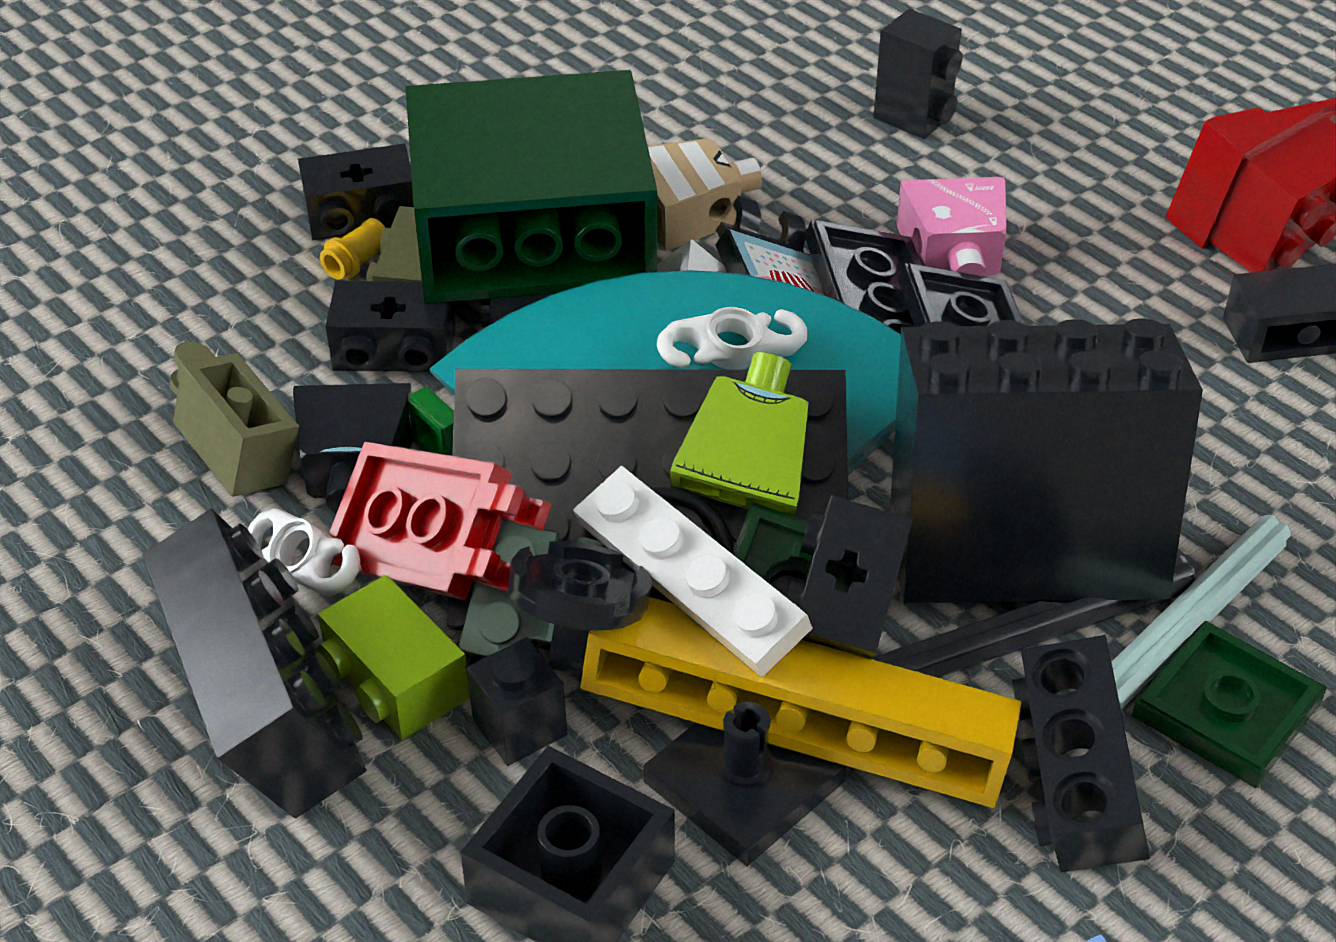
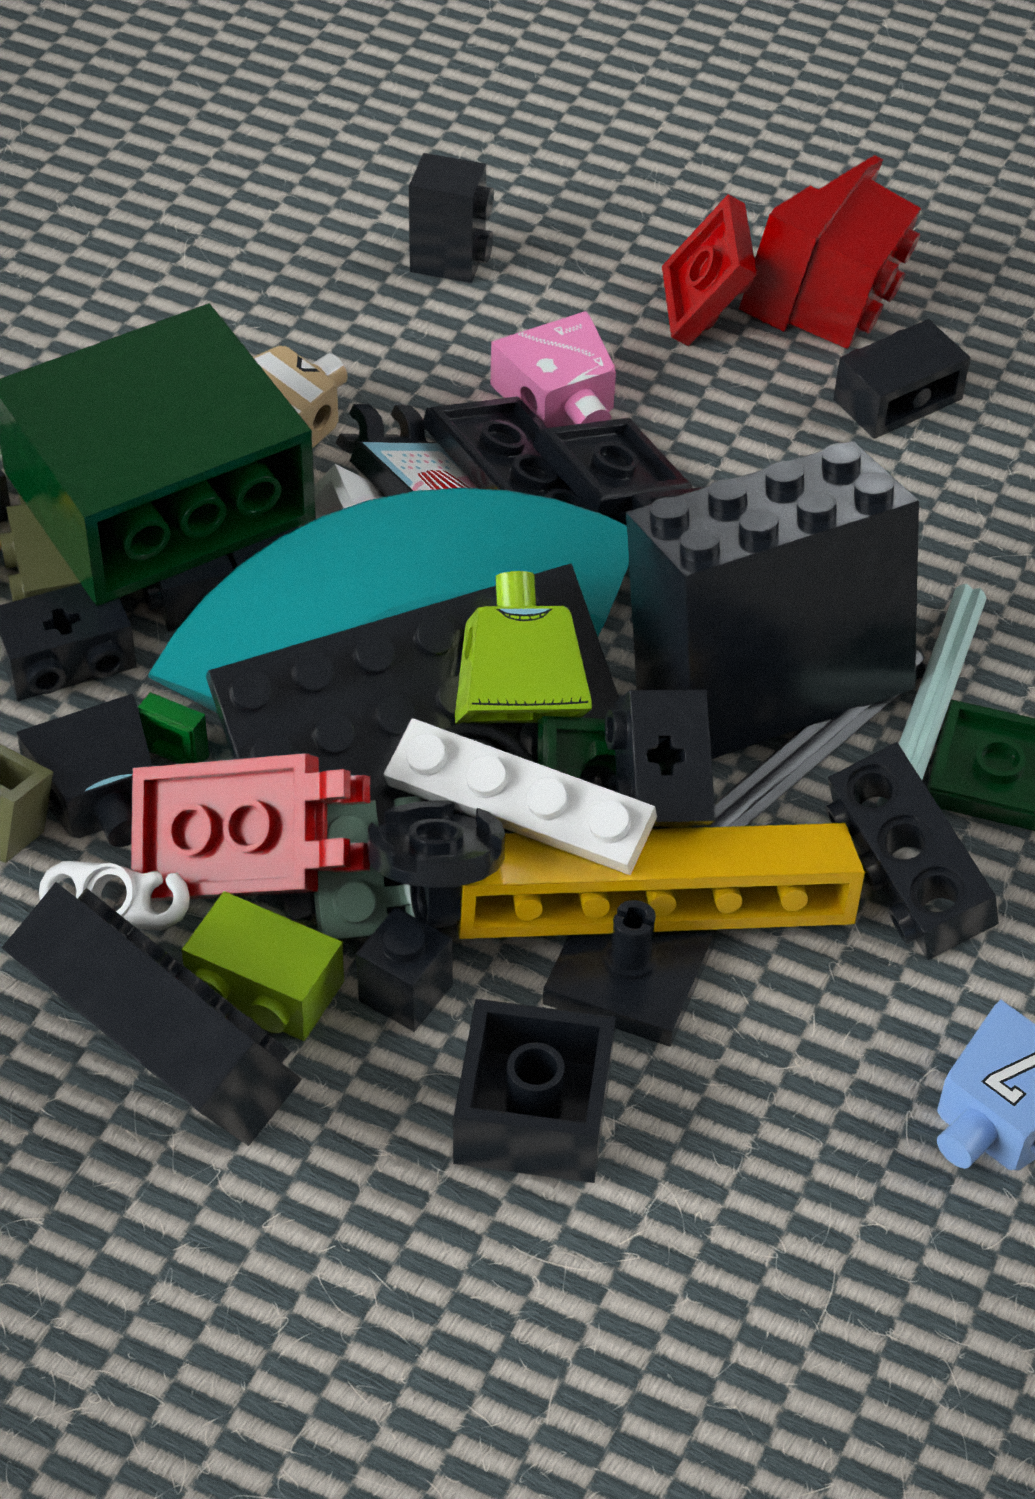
camera: 25 degrees left, 5 degrees up
(703, 332) = (421, 565): white piece -> none
(1142, 171) = (709, 270): none -> red plate

